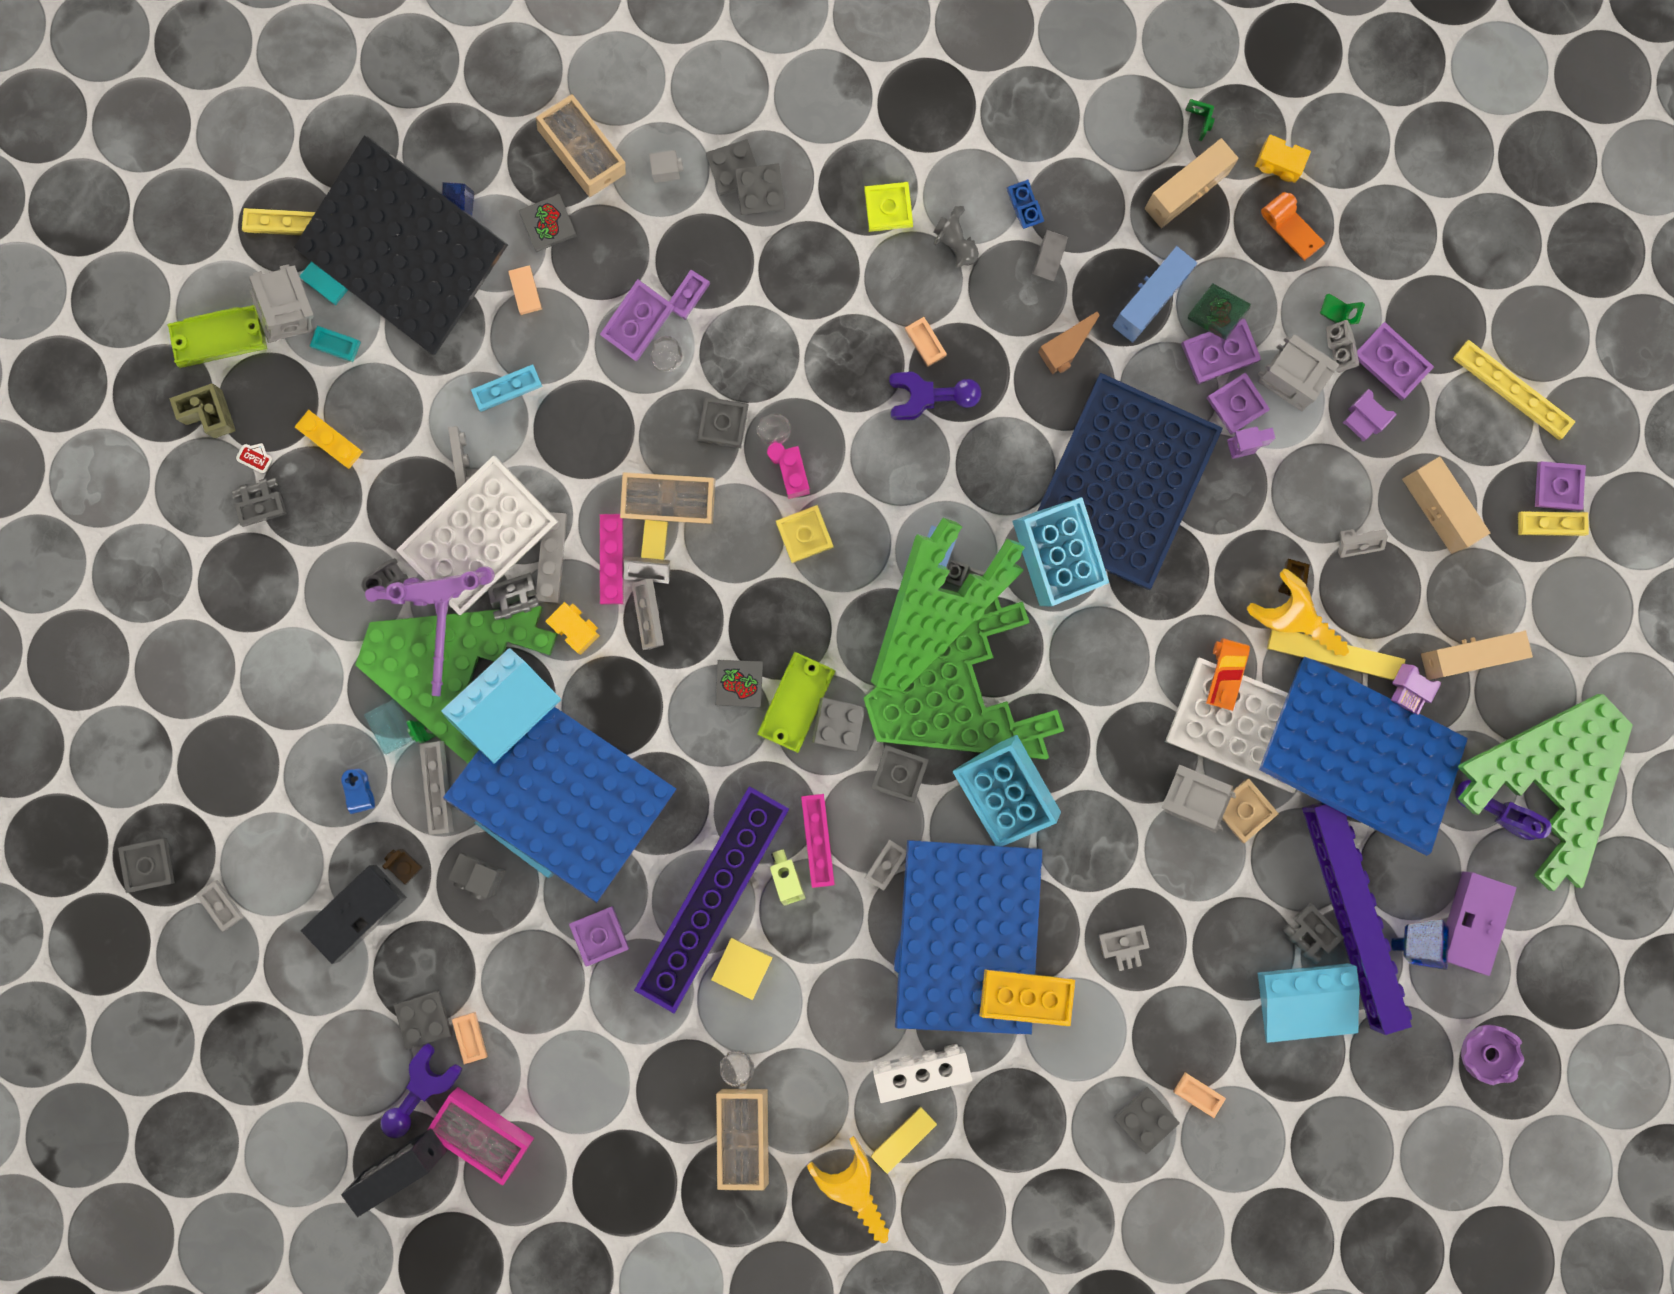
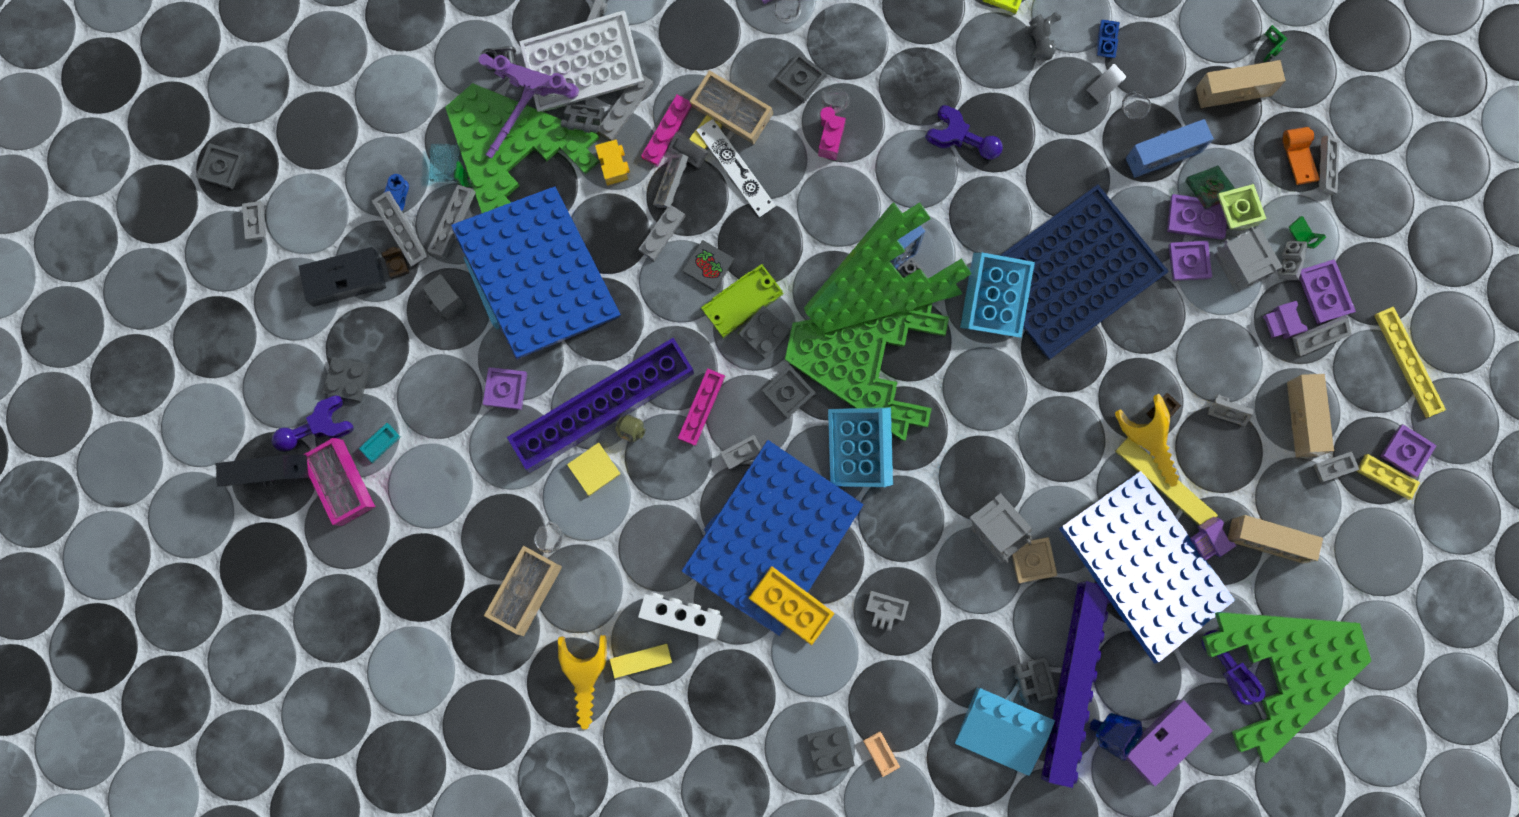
camera: 35 degrees right, 5 degrees down
(386, 827) = (400, 228): none -> light grey plate
(469, 1038) = (371, 410): light nougat tile -> none
(498, 1067) = (379, 442): none -> teal tile
(501, 705) = (529, 185): medium azure slope -> none
(669, 675) = (661, 232): none -> light grey plate
(708, 560) = (736, 167): none -> white sticker
(756, 905) = (630, 428): none -> olive head
(788, 888) = (662, 421): yellowish green torso -> none
(804, 534) = (815, 185): light yellow tile -> none
(925, 341) = (980, 97): light nougat tile -> none
(1062, 349) = (1080, 153): medium nougat slope -> none
(1095, 264) = (1136, 105): none -> clear hair
(1227, 736) = (1056, 486): white plate -> none
(1228, 673) = (1074, 451): orange door -> none
(1249, 441) = (1184, 290): medium lavender piece -> none
(1263, 319) = (1242, 208): none -> yellowish green slope
(1281, 159) = (1319, 103): yellow brick -> none
(1326, 221) = (1329, 165): none -> light grey plate
(1413, 411) = (1322, 335): none -> light grey plate
(1497, 543) = (1336, 467): none -> light grey plate

